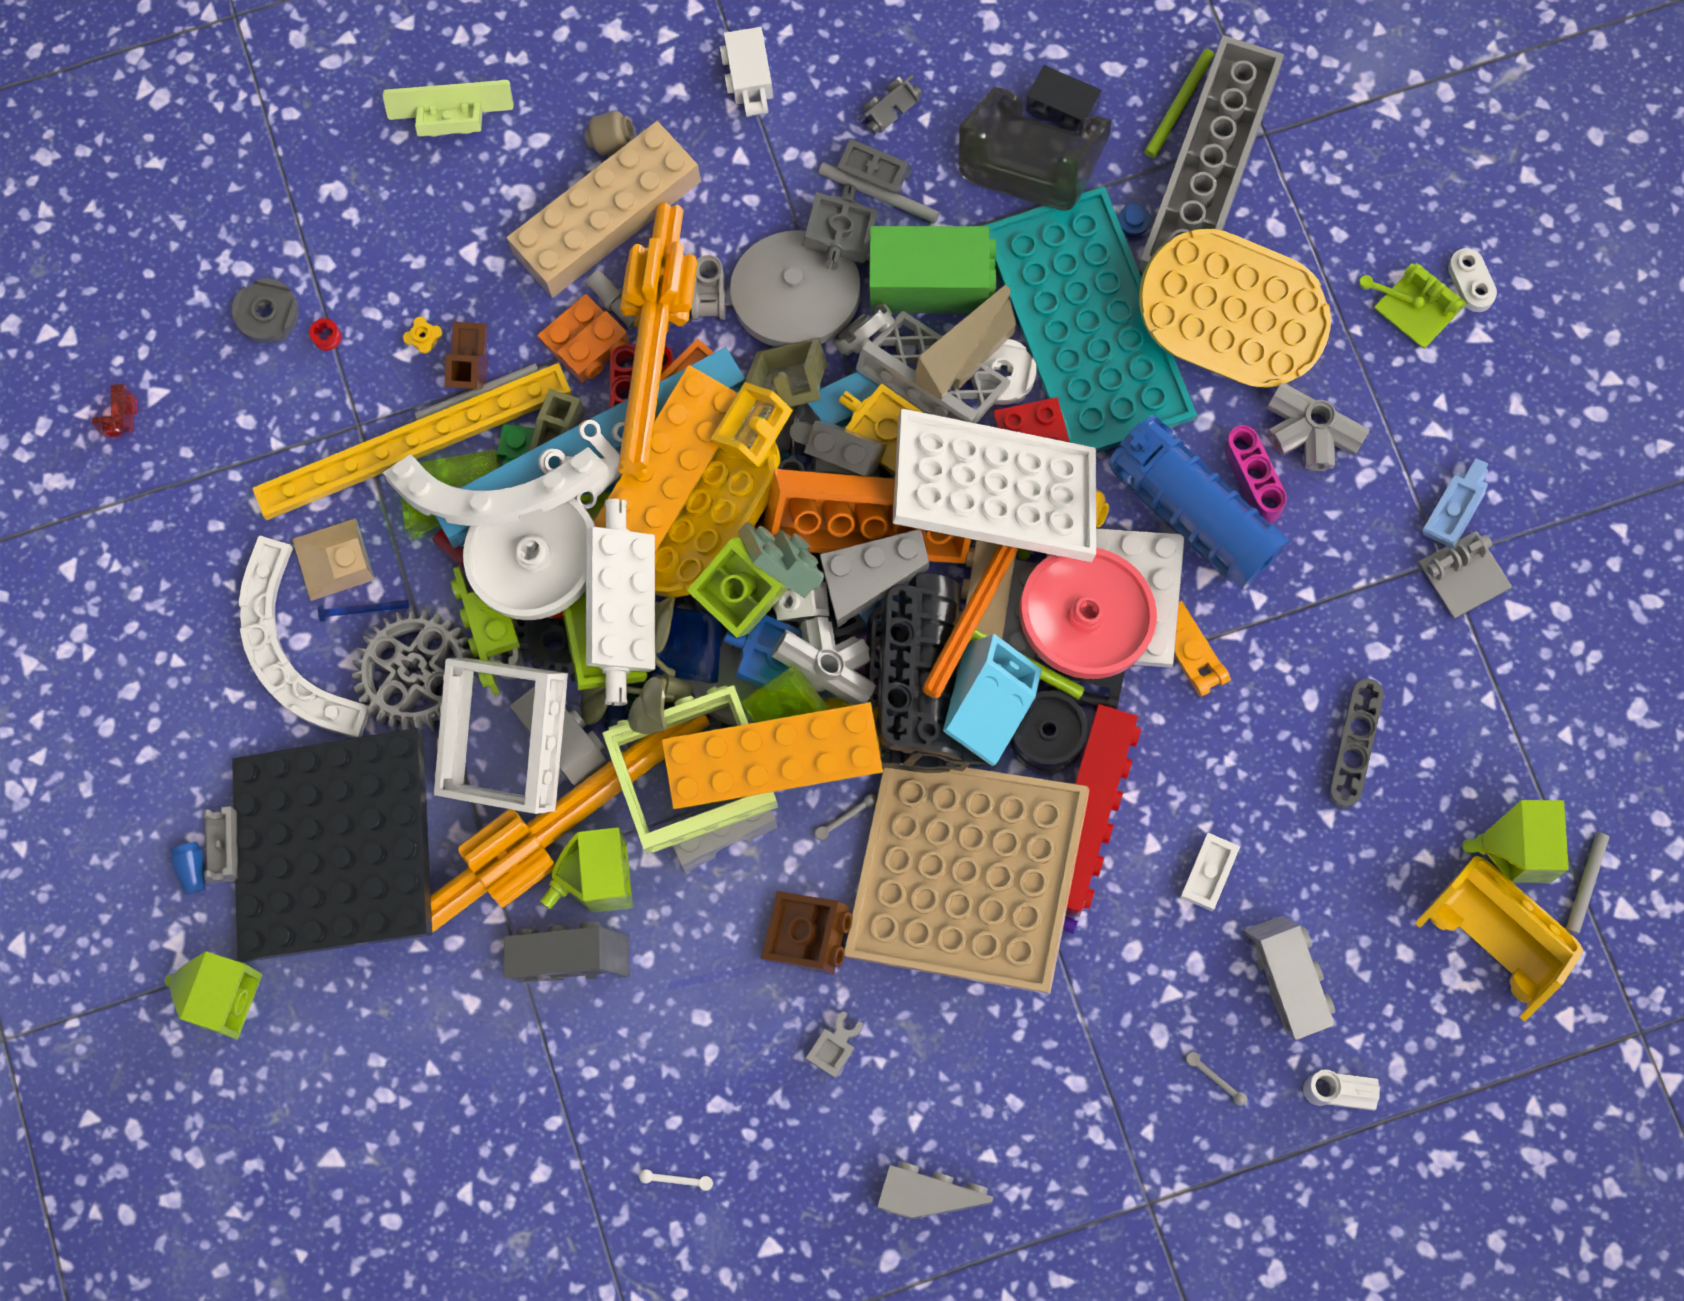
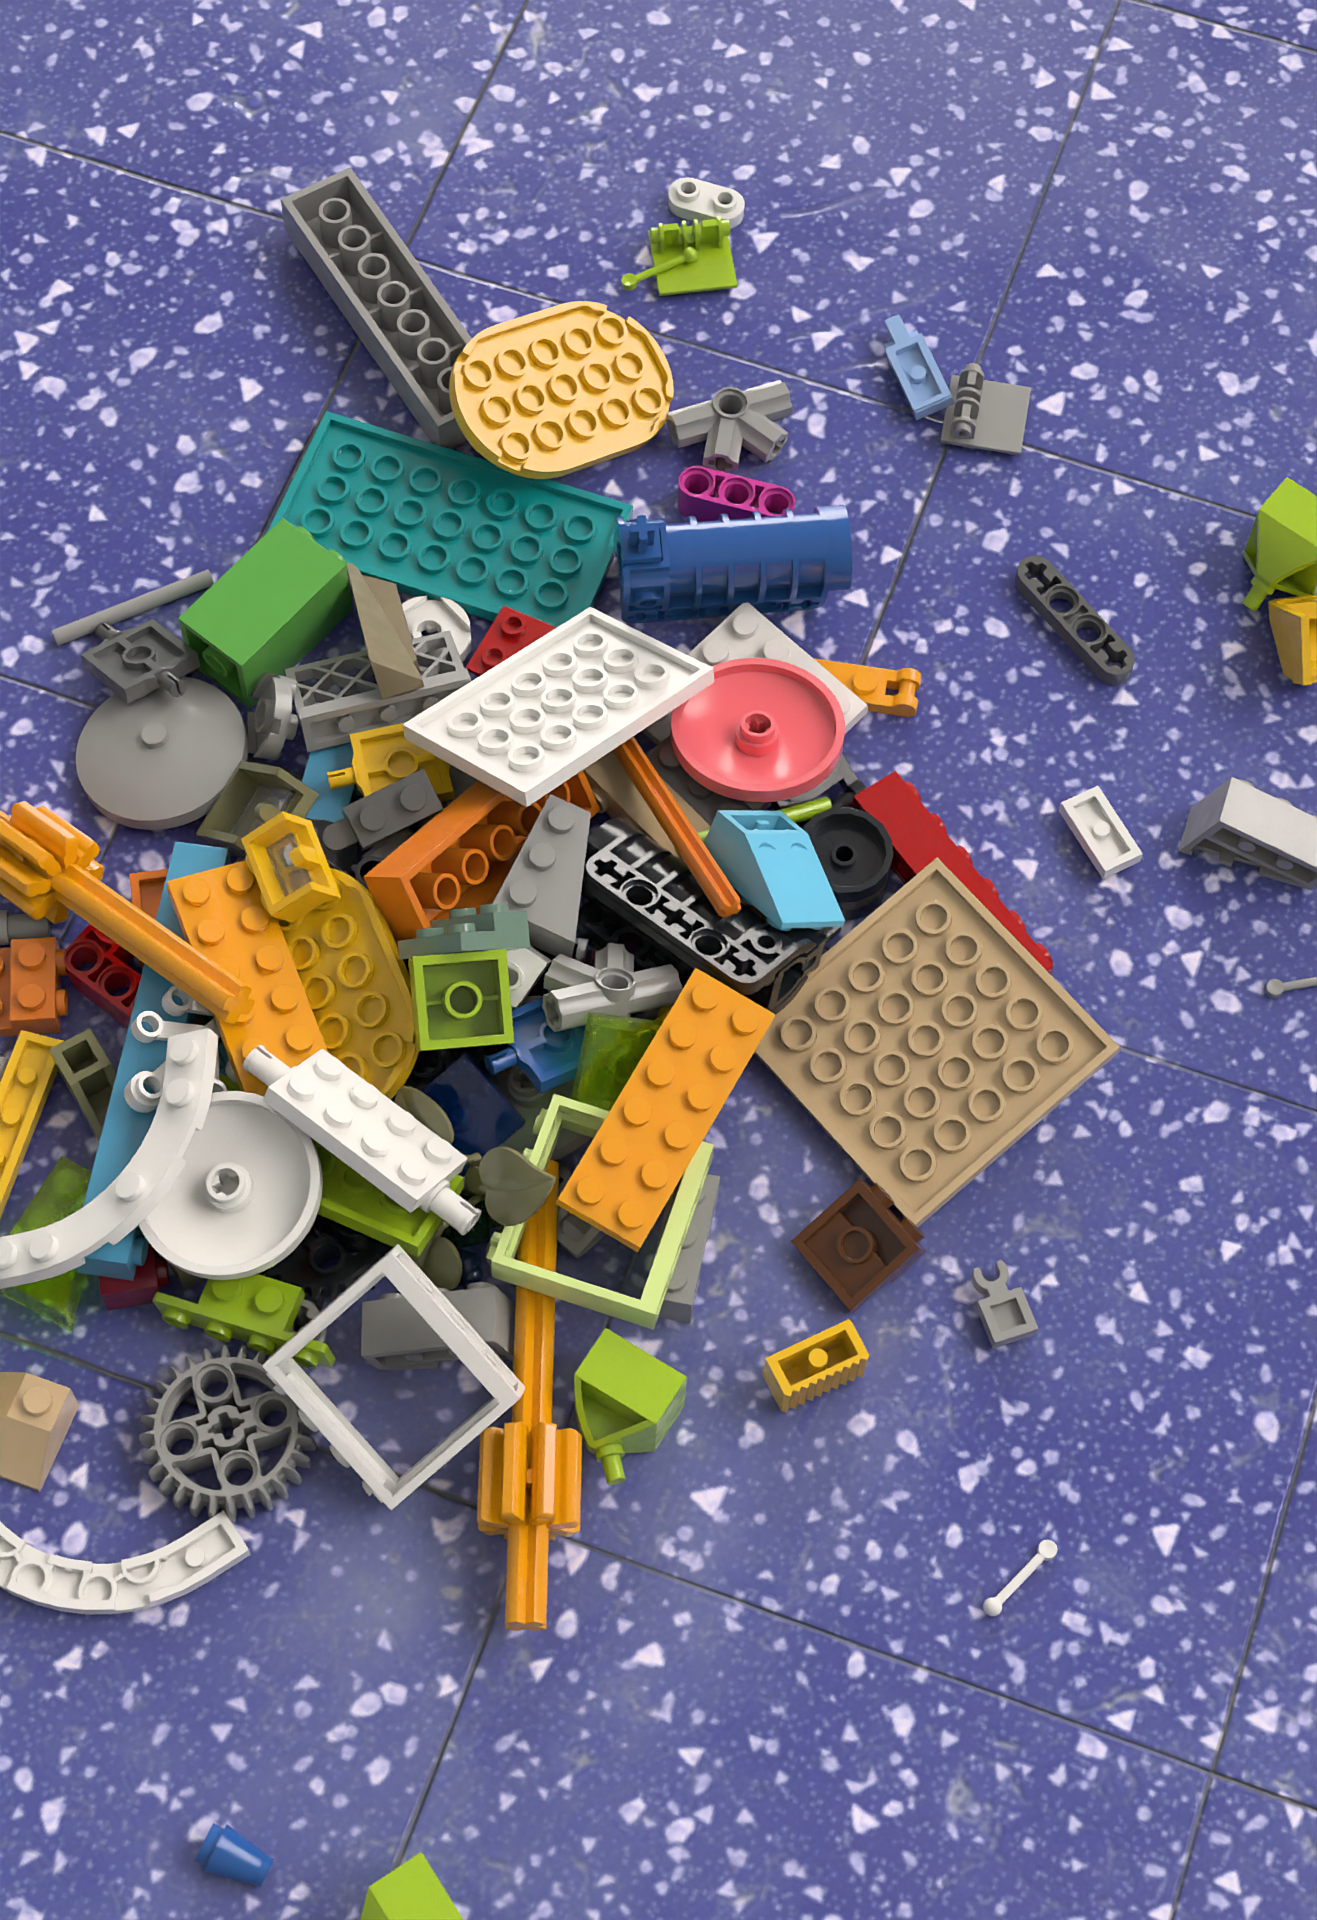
camera: 60 degrees left, 10 degrees down
(221, 845) = (240, 1800): light grey hinge -> none
(323, 613) = (69, 1485): clear blue piece -> none
(332, 846) = (352, 1667): black plate -> none
(514, 442) = (69, 1139): green plate -> none
(565, 953) = (682, 1505): dark grey wedge -> none
(705, 964) = (815, 1365): none -> yellow brick
(709, 294) = (89, 821): light grey piece -> none
(823, 832) = (762, 1155): light grey hinge -> none
(874, 166) = (105, 583): dark grey hinge -> none
(900, 95) = (45, 541): dark grey hinge -> none
(921, 1196) = (1222, 1342): light grey slope -> none
(1026, 155) = (236, 446): clear smoke windscreen -> none
(1061, 99) = (203, 381): black brick -> none
(1134, 219) = (383, 413): blue plate -> none
(1179, 103) = (302, 296): lime bar -> none

